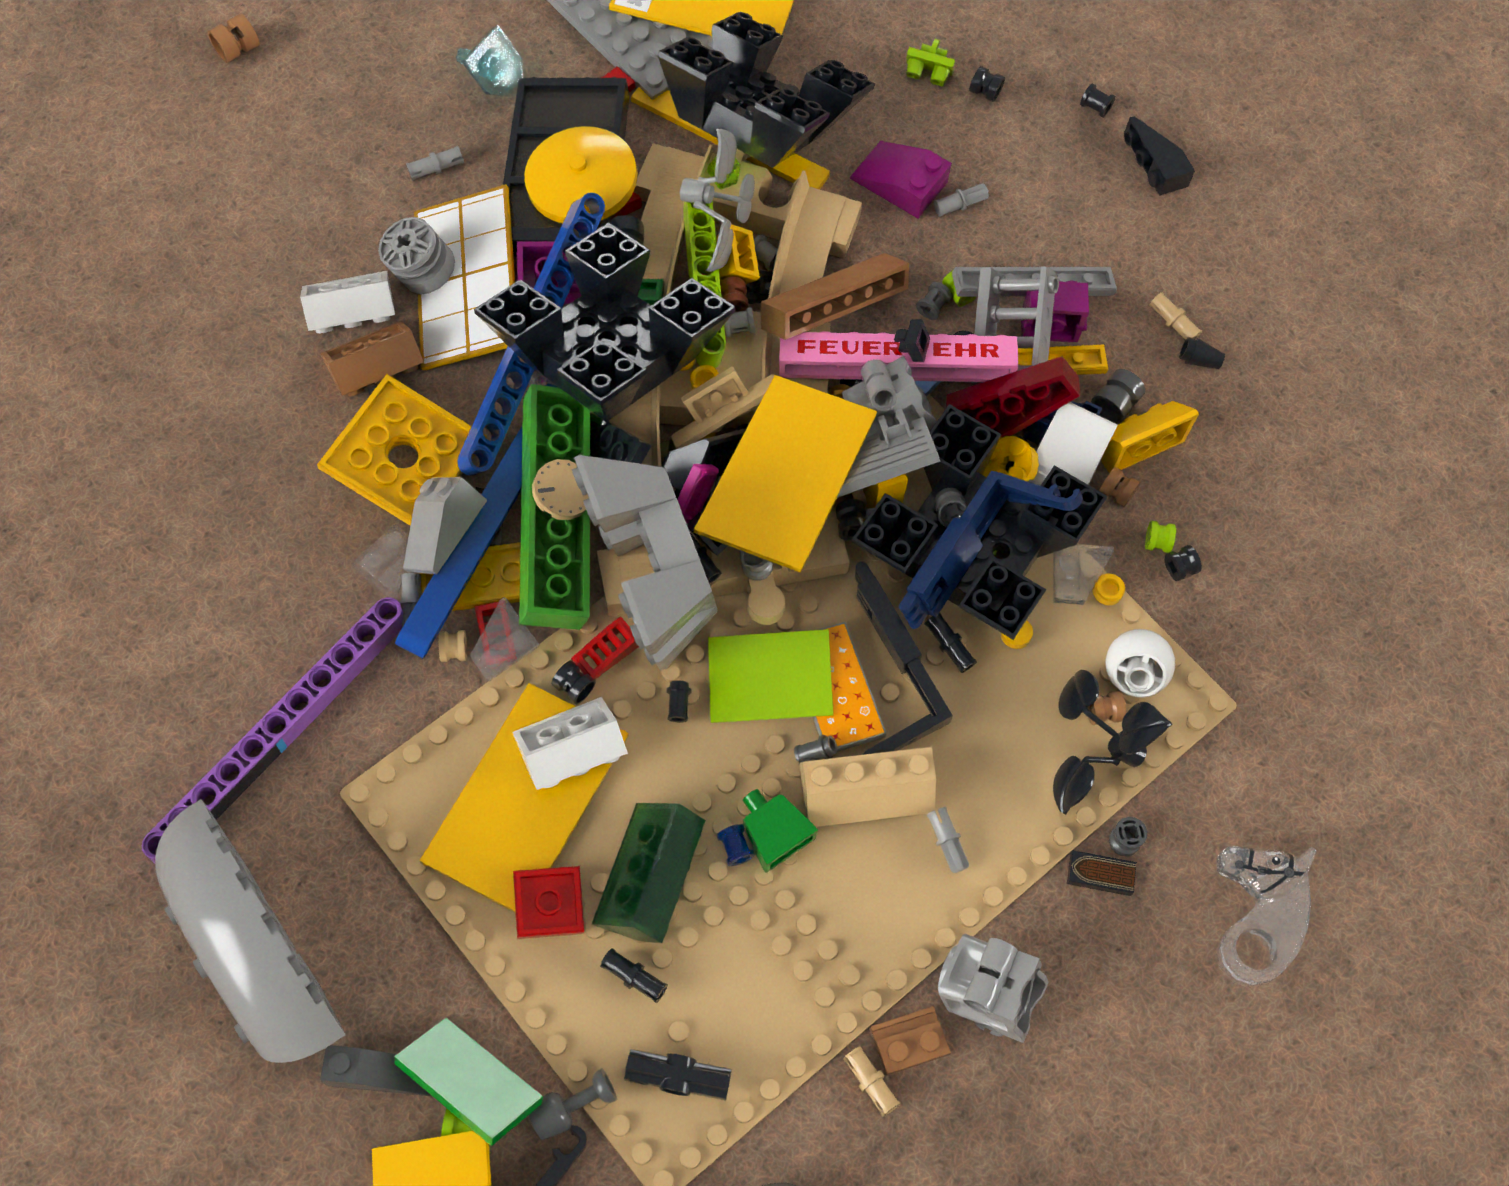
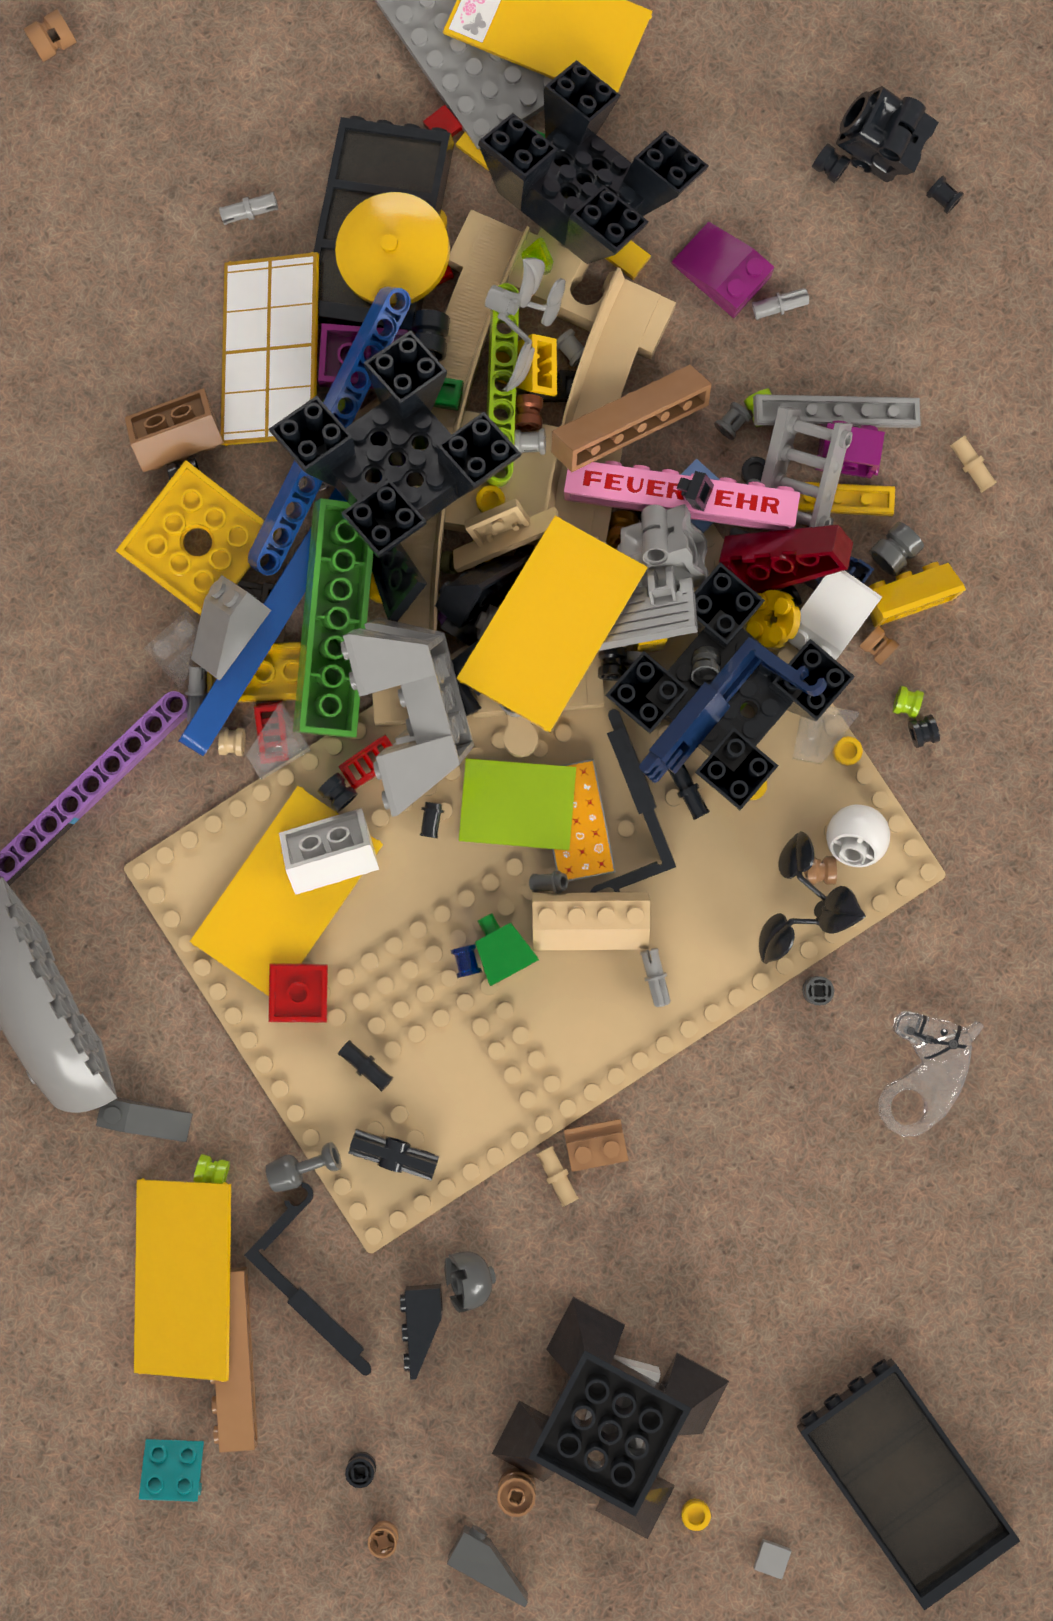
camera: 15 degrees right, 20 degrees up
(347, 302) = (153, 363): white slope -> none
(416, 255) = (222, 325): light grey wheel -> none
(468, 1081) = (218, 1140): tile -> none
(493, 63) = (316, 95): clear light blue piece -> none
(557, 490) = (341, 609): tan tile -> none
(649, 871) = (387, 976): clear green slope -> none
(696, 489) = (466, 627): dark pink tile -> none
(932, 59) = (762, 127): lime hips -> none
(992, 985) = (669, 1115): light grey piece -> none
(1034, 48) = (885, 133): none -> black piece
(1101, 873) = (789, 1018): tile -> none
(1161, 159) = (998, 276): black slope -> none
(1201, 354) = (989, 507): black cone -> none

